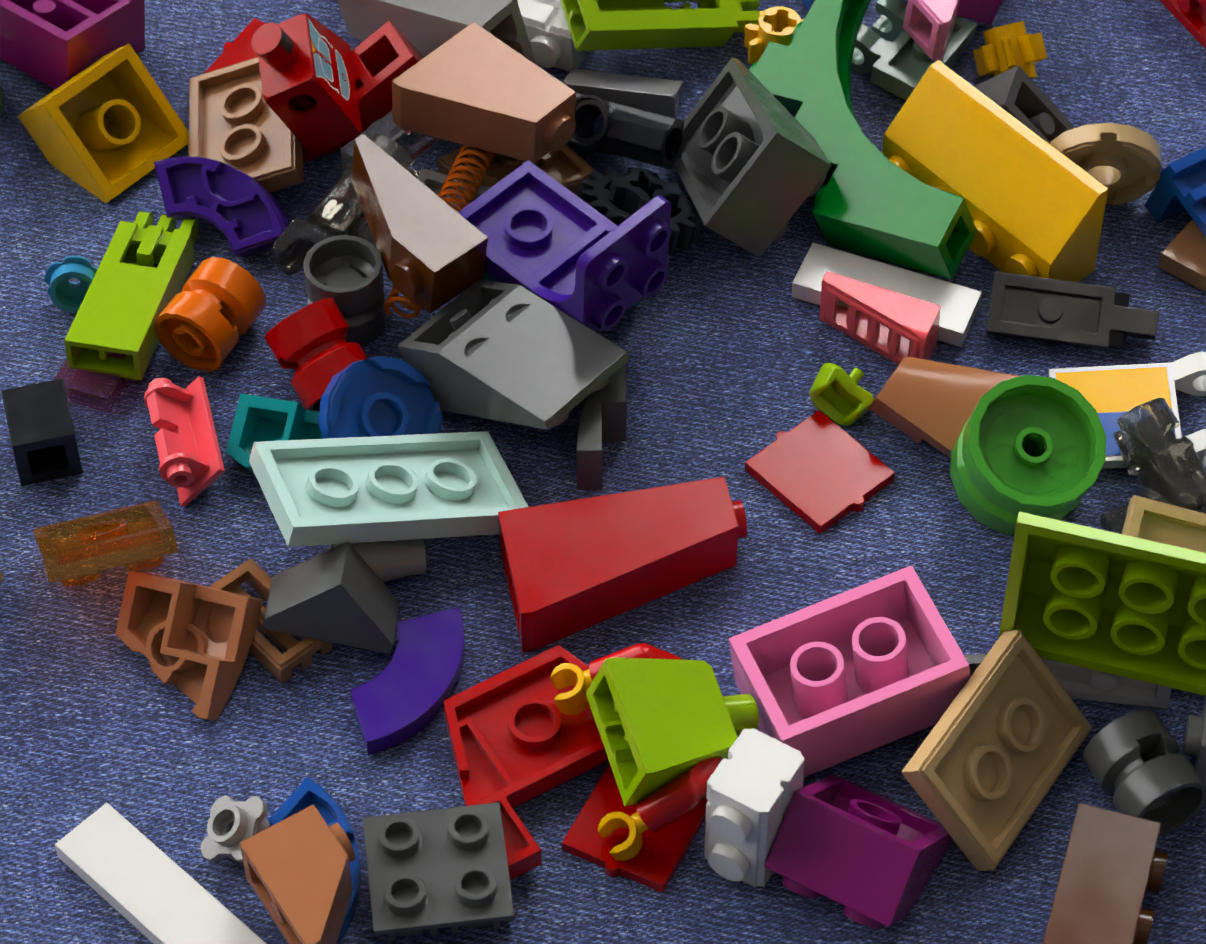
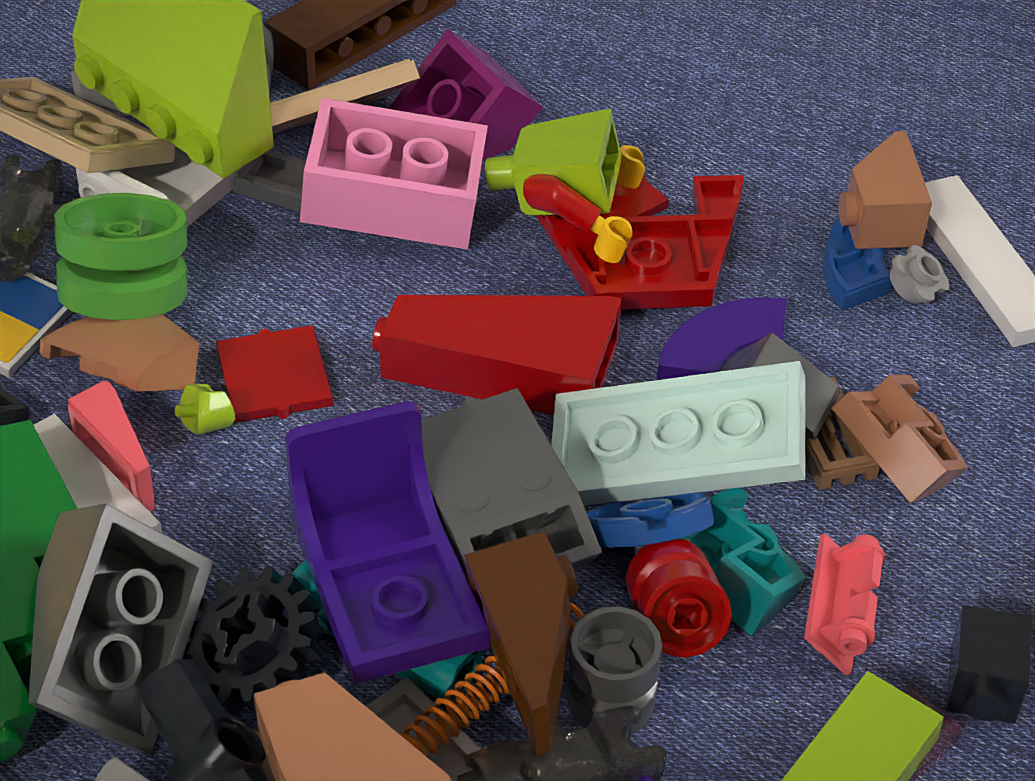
camera: 155 degrees left, 5 degrees down
(86, 545) = (962, 507): clear orange plate -> none
(210, 314) = (765, 713): orange wheel -> none
(437, 870) = (778, 184): dark grey hinge -> none
(748, 804) = (527, 96): white brick -> none

